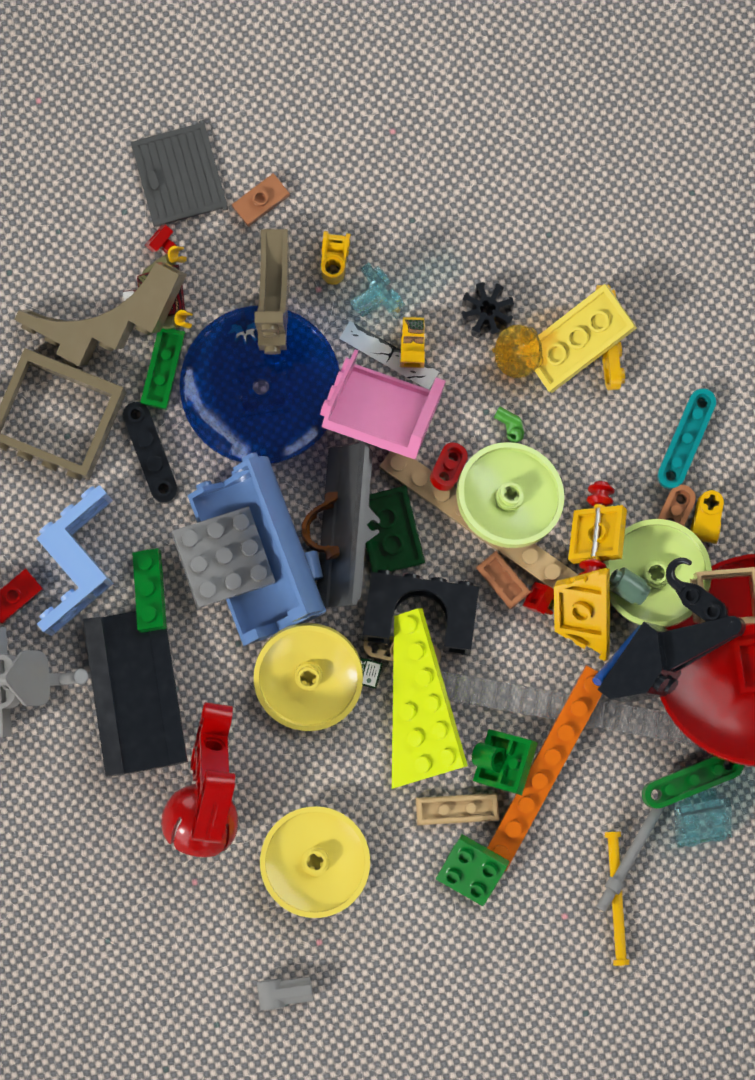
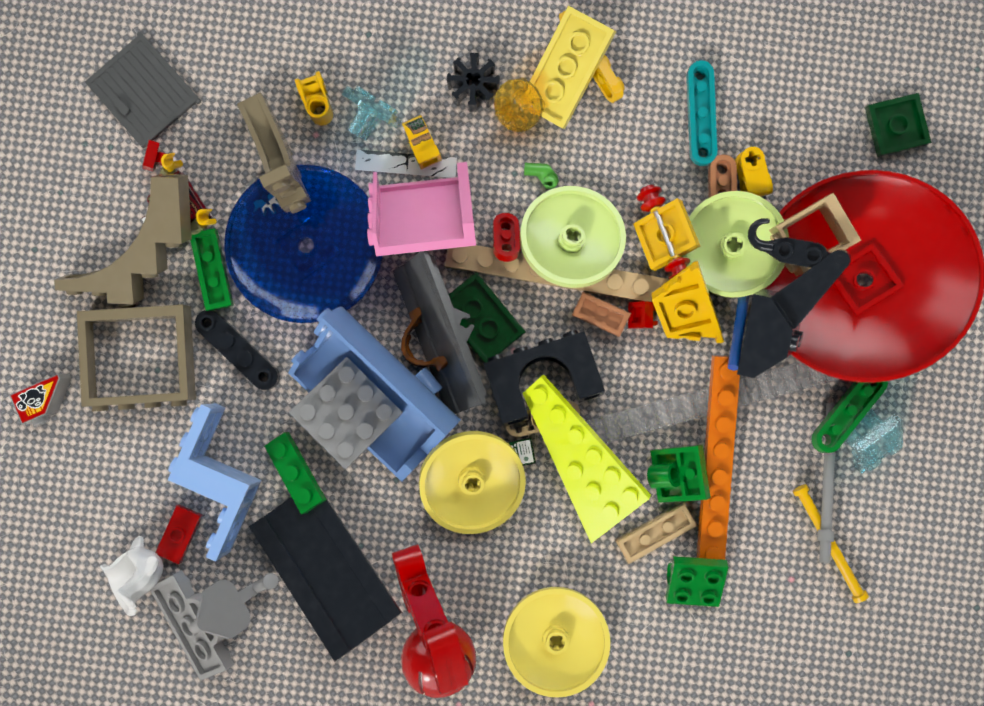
camera: 30 degrees left, 5 degrees up
(260, 200) = (225, 78): nougat plate -> none
(629, 586) = (718, 267): sand green brick -> none

